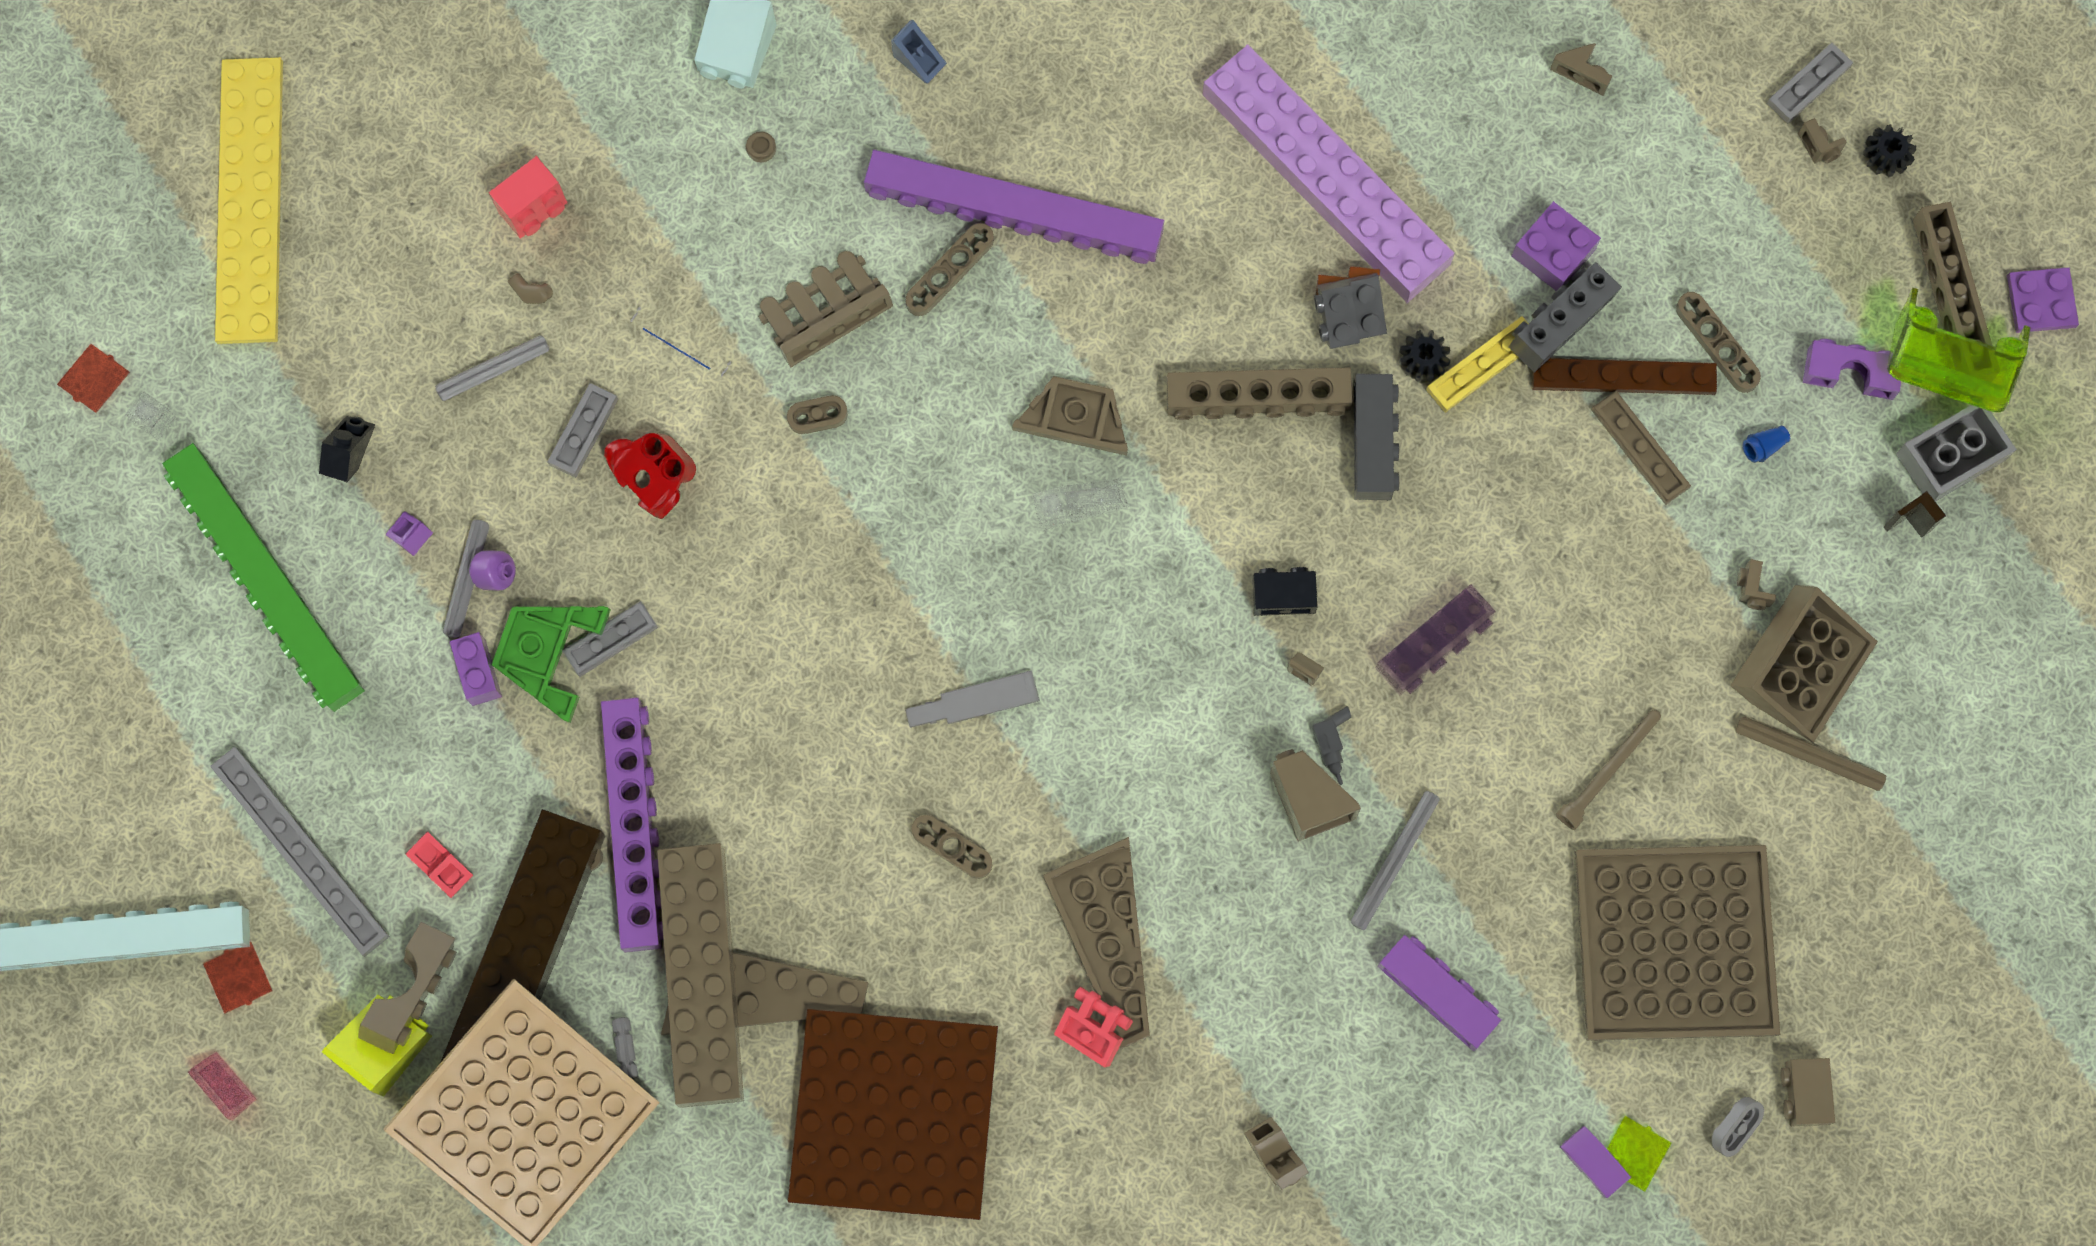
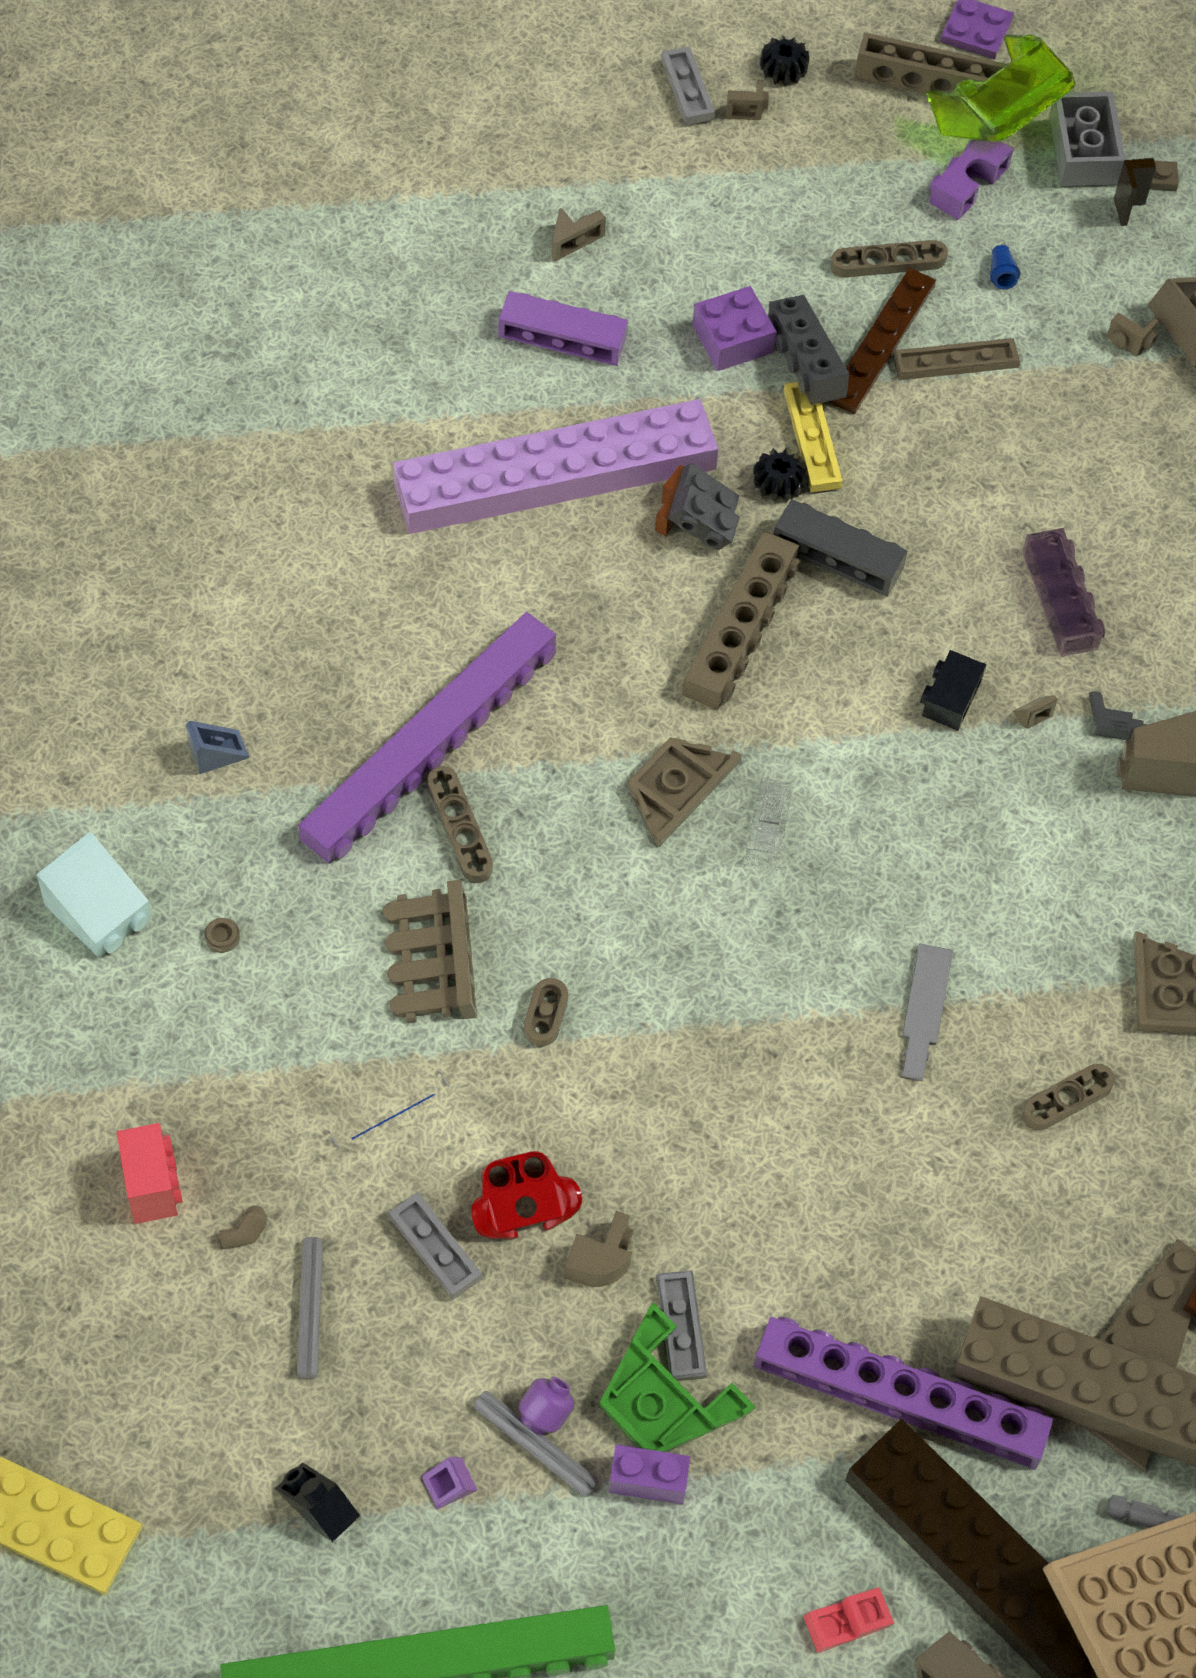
camera: 70 degrees left, 15 degrees down
(629, 558) = (599, 1262): none -> dark tan brick
(1475, 109) = (563, 328): none -> medium lavender brick
(1963, 538) = (1165, 176): none -> dark tan plate

